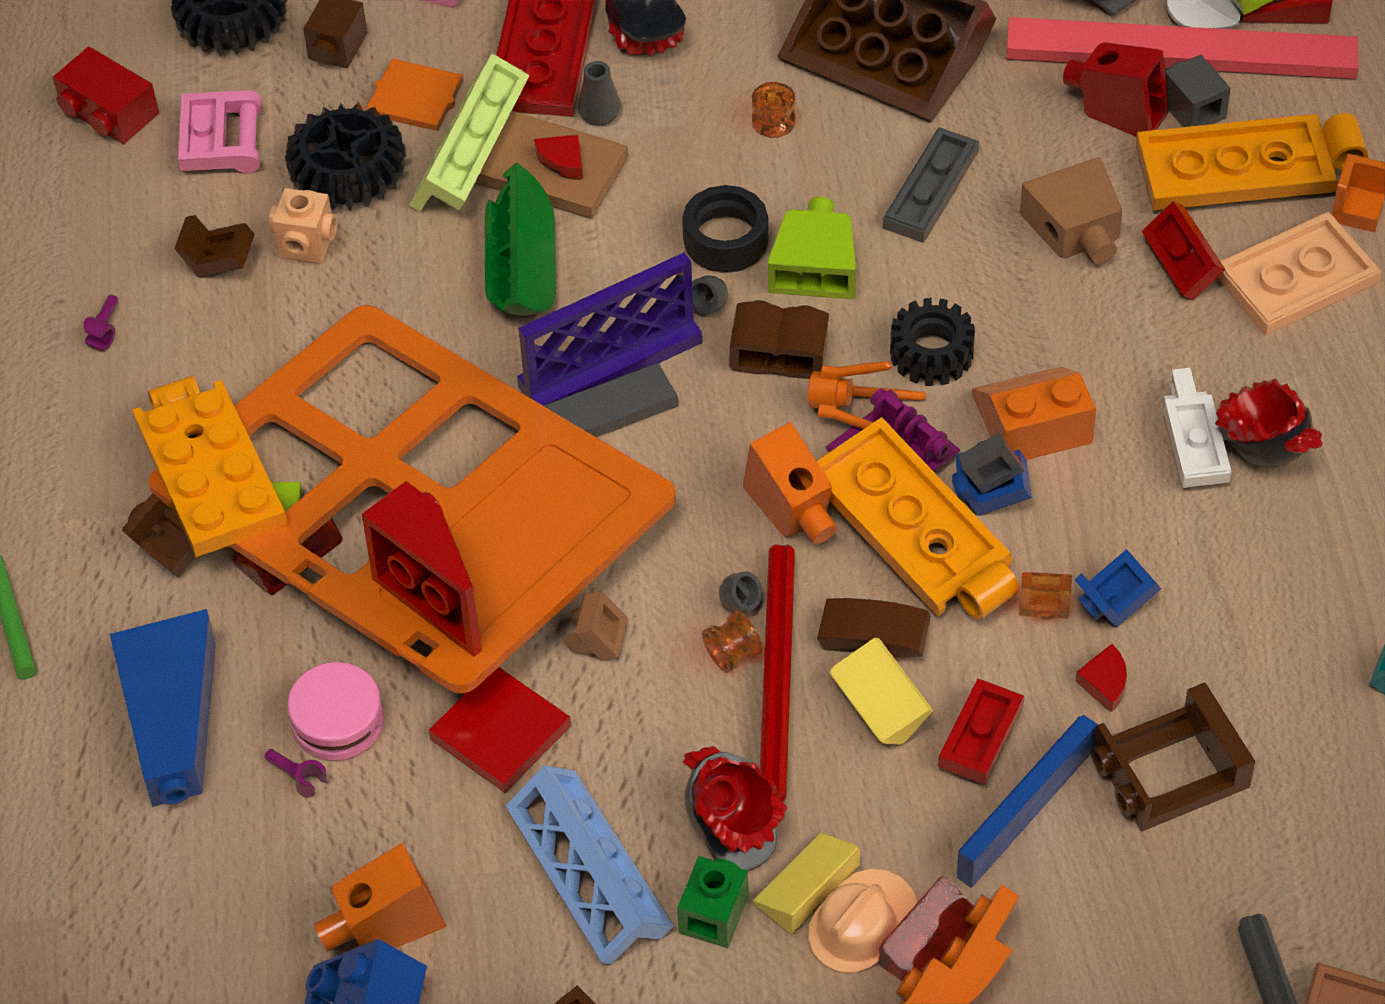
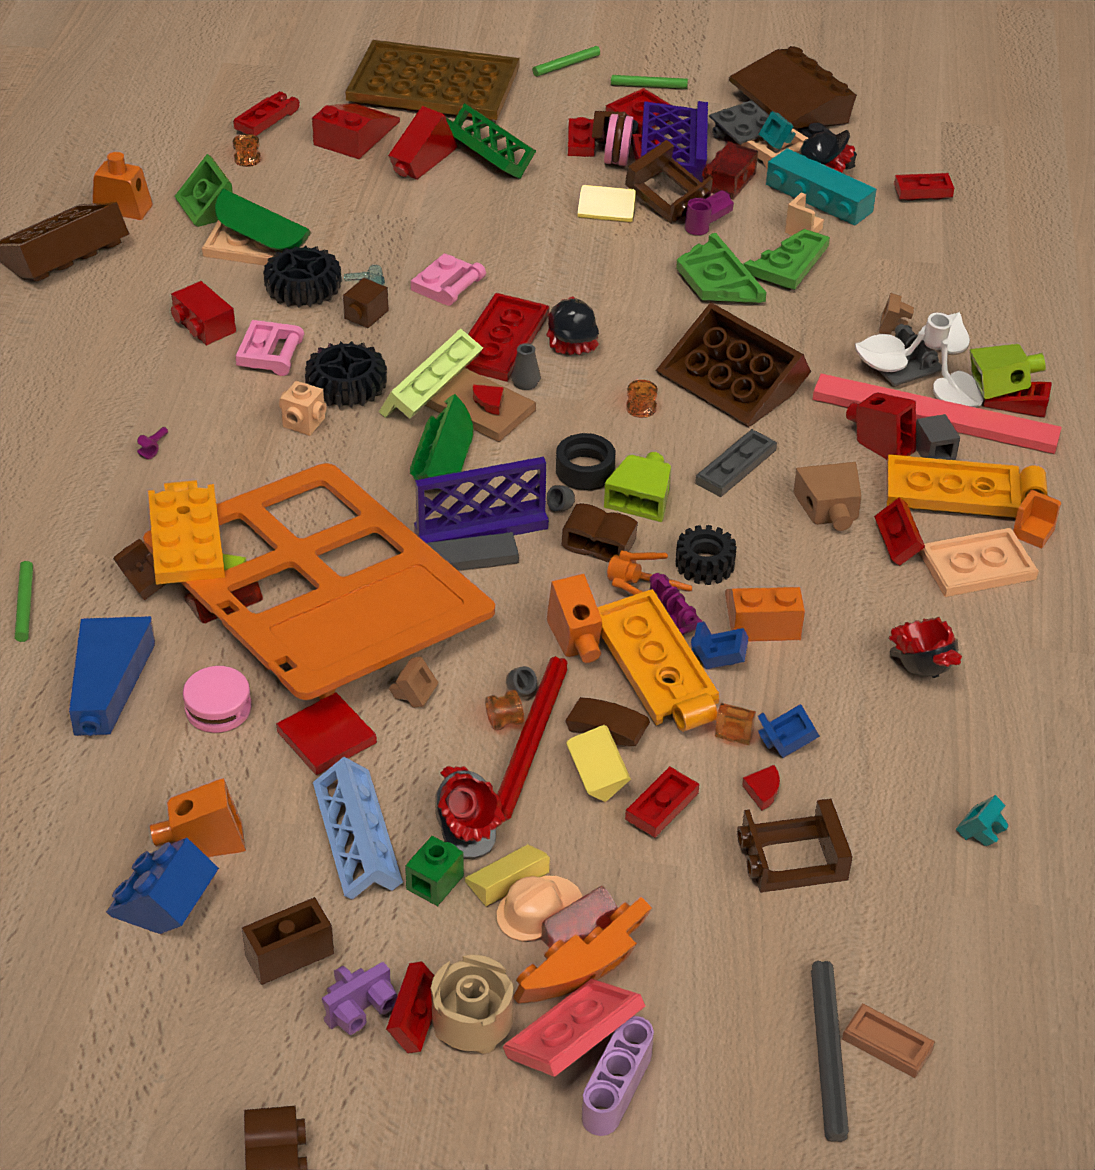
camera: 10 degrees right, 10 degrees down
(213, 250) = (239, 413): reddish brown bracket -> none
(298, 771) = (180, 732): magenta hand -> none
(415, 94) = (406, 349): orange piece -> none
(420, 563) = (297, 606): red slope -> none
(991, 463) = (719, 630): dark grey plate -> none
(1026, 800) = (679, 852): blue tile -> none
(1193, 433) = (873, 647): white hinge -> none

